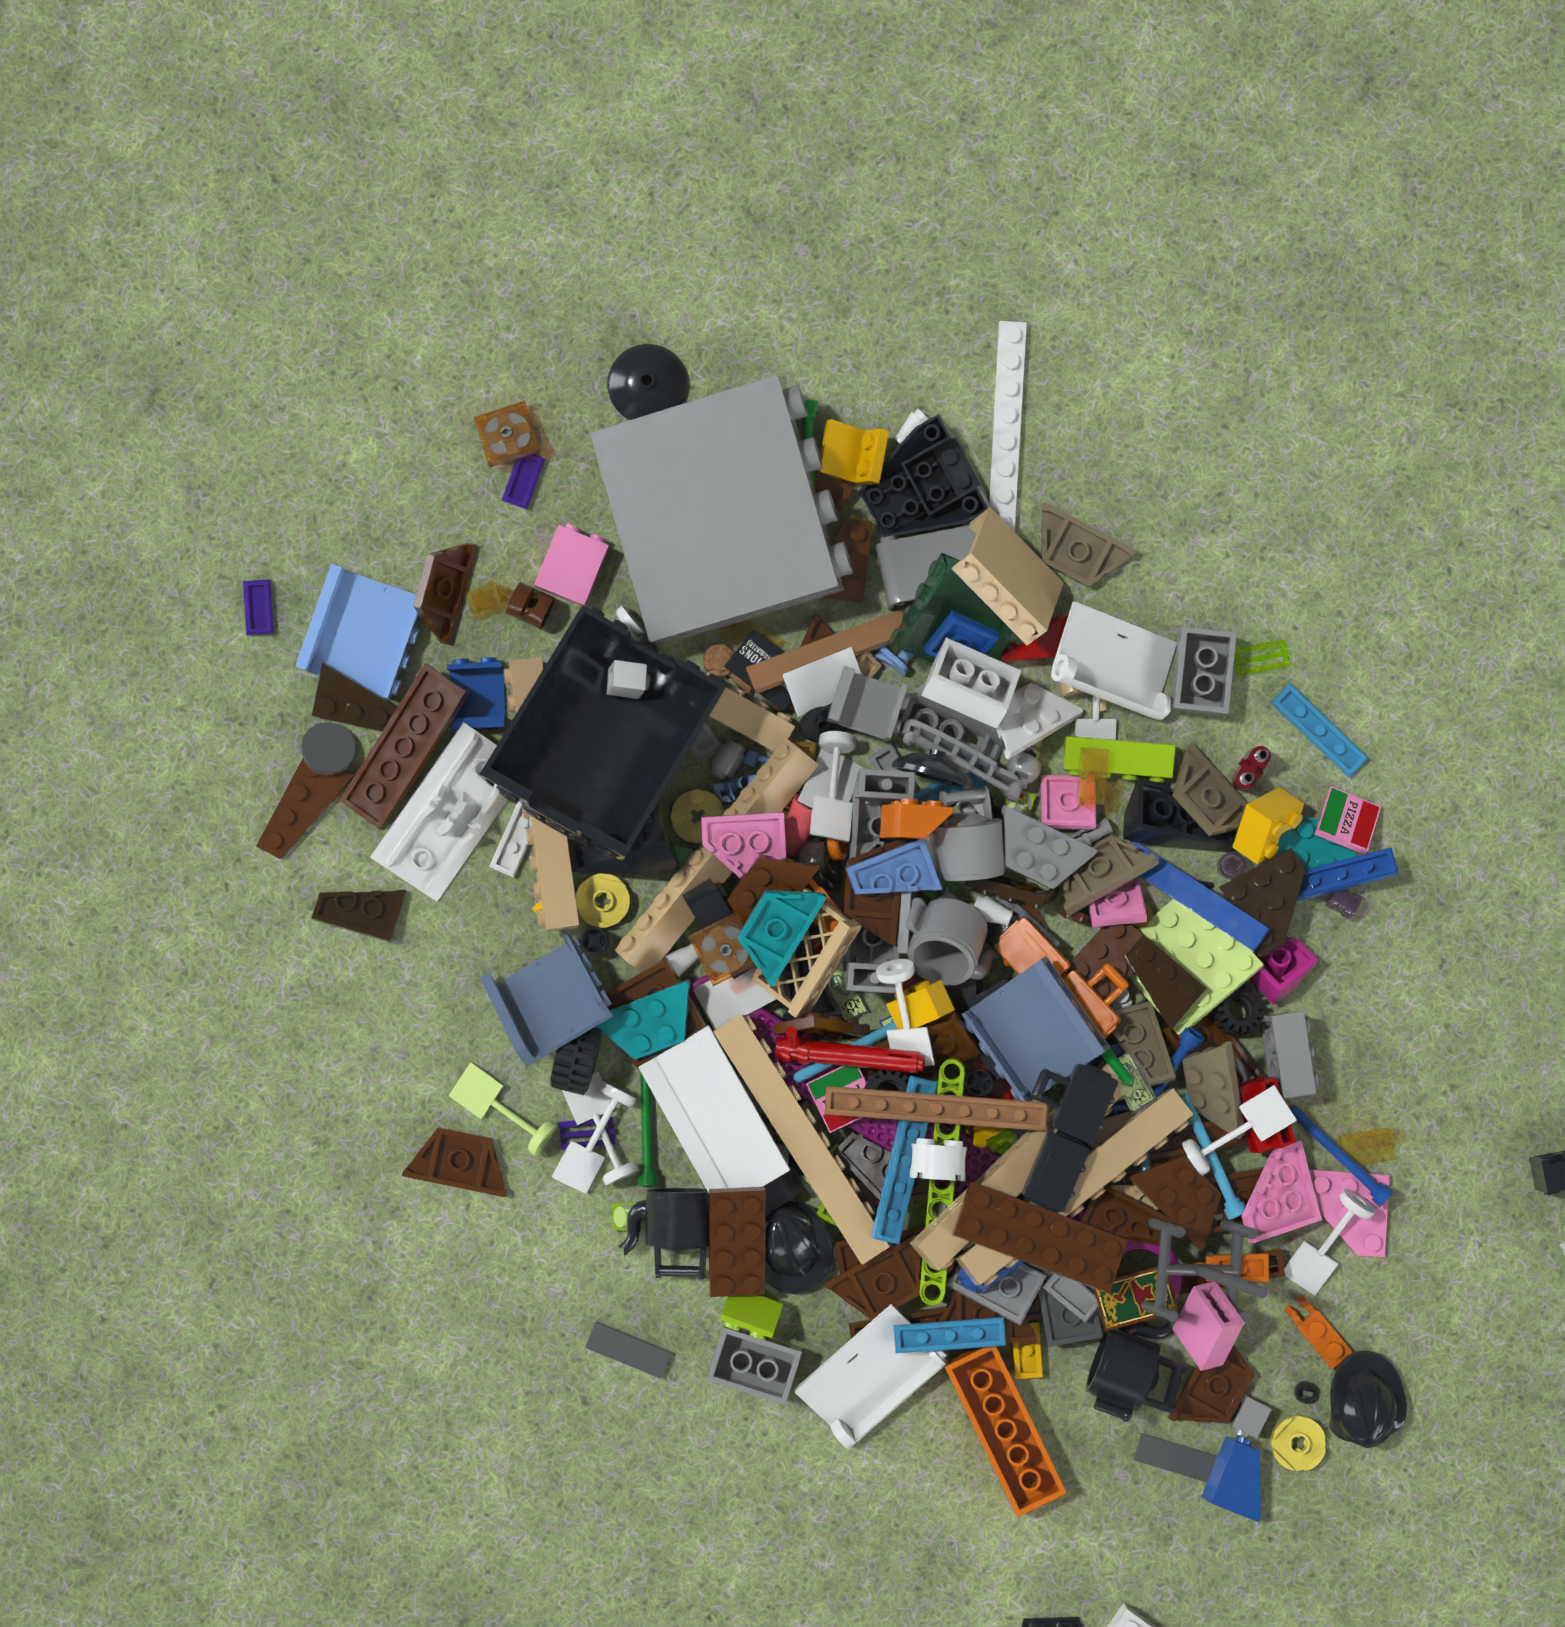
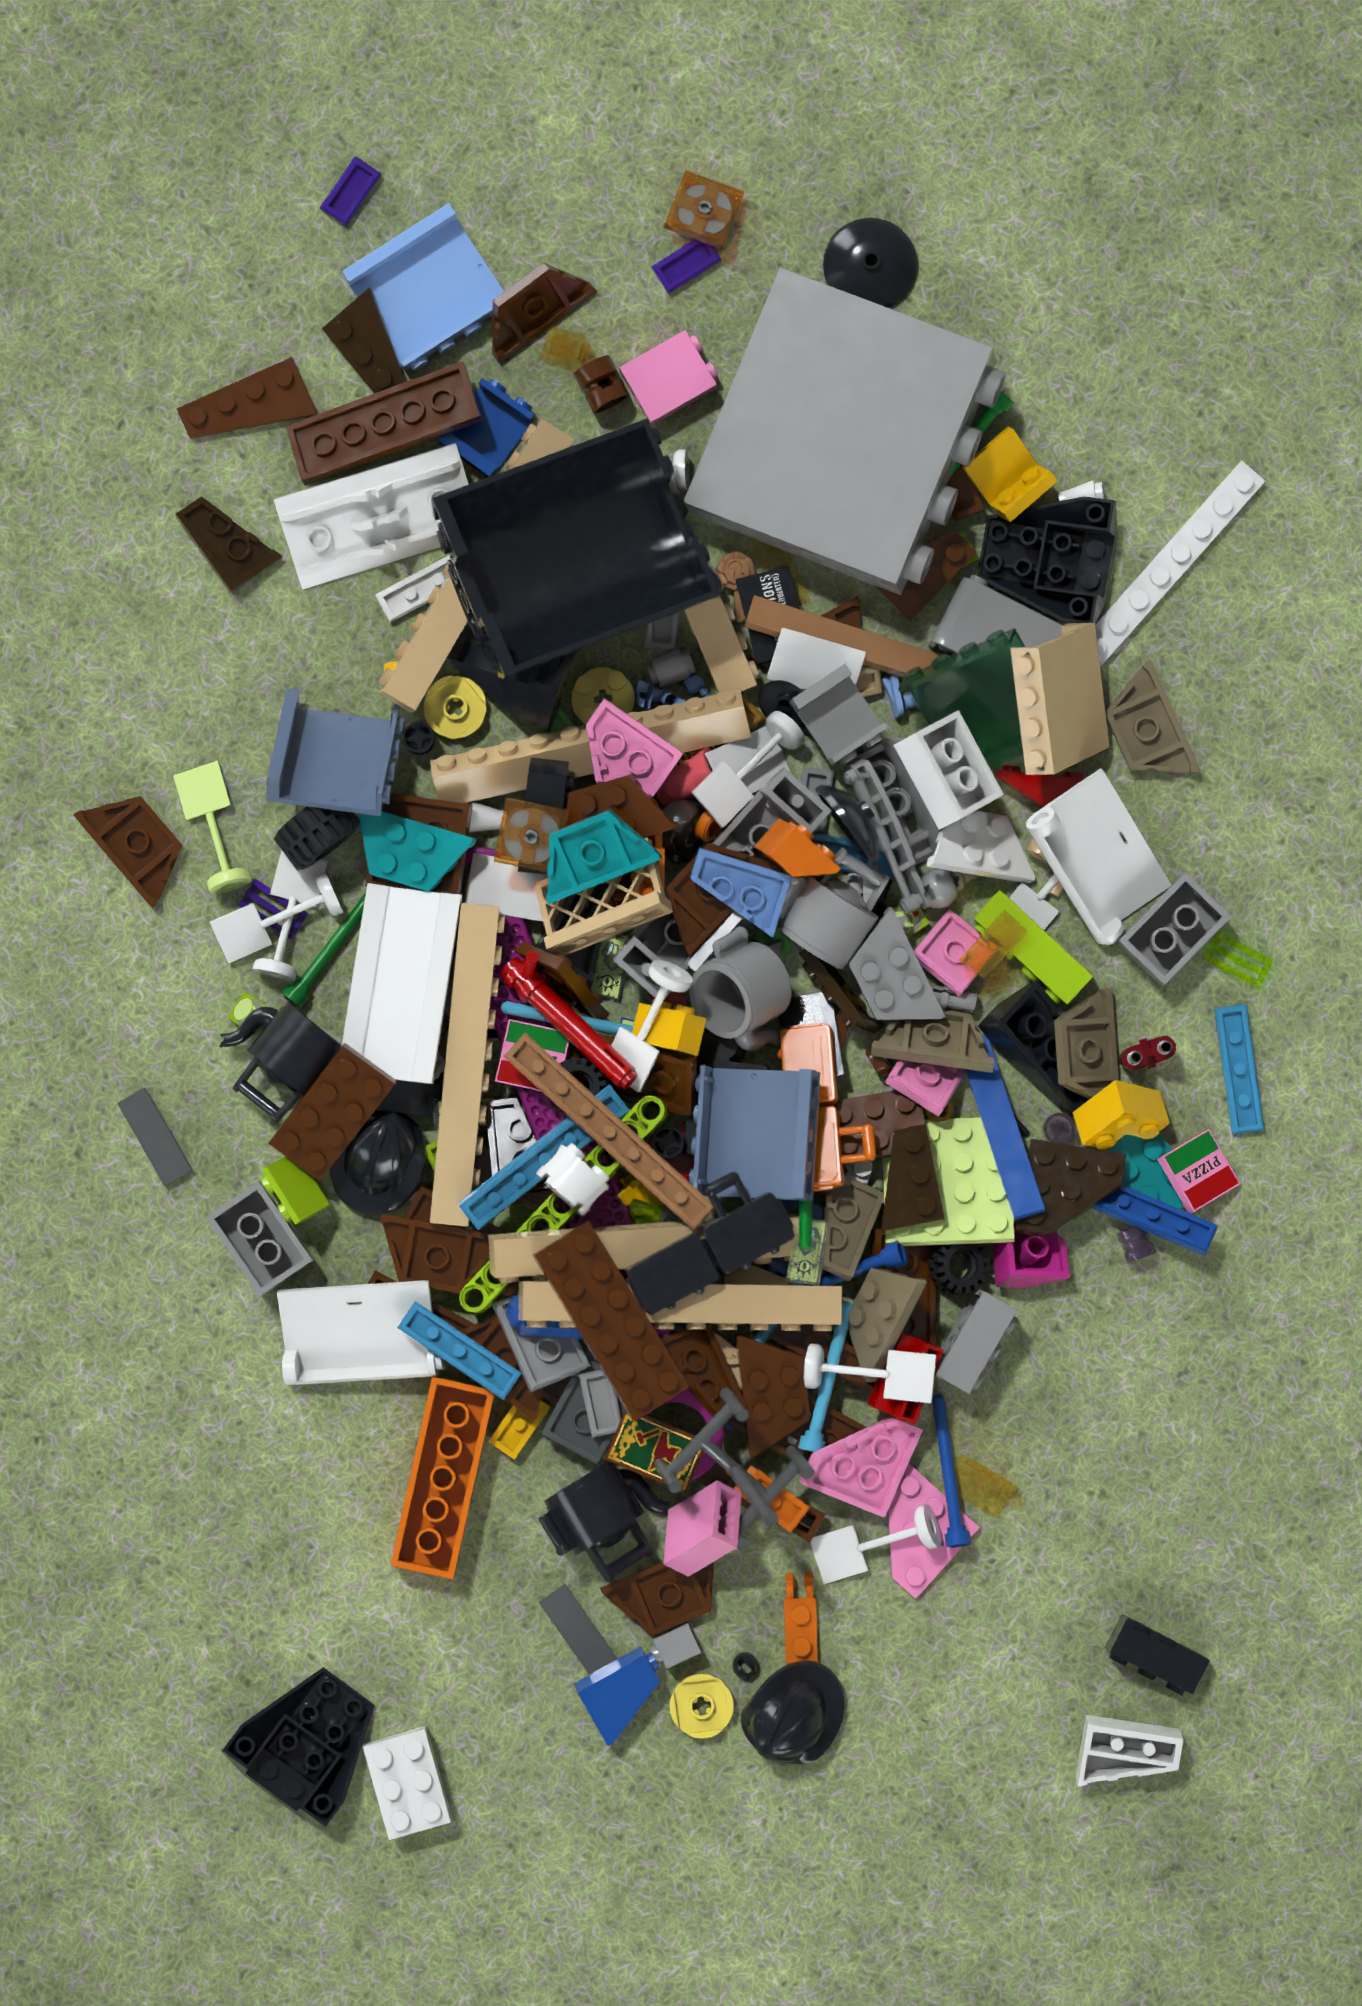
camera: 35 degrees right, 0 degrees up
(328, 748) = (312, 370): dark grey tile -> none
(627, 679) = (636, 520): white brick -> none
(964, 631) = (979, 718): blue plate -> none
(992, 910) = (805, 997): white cone -> none

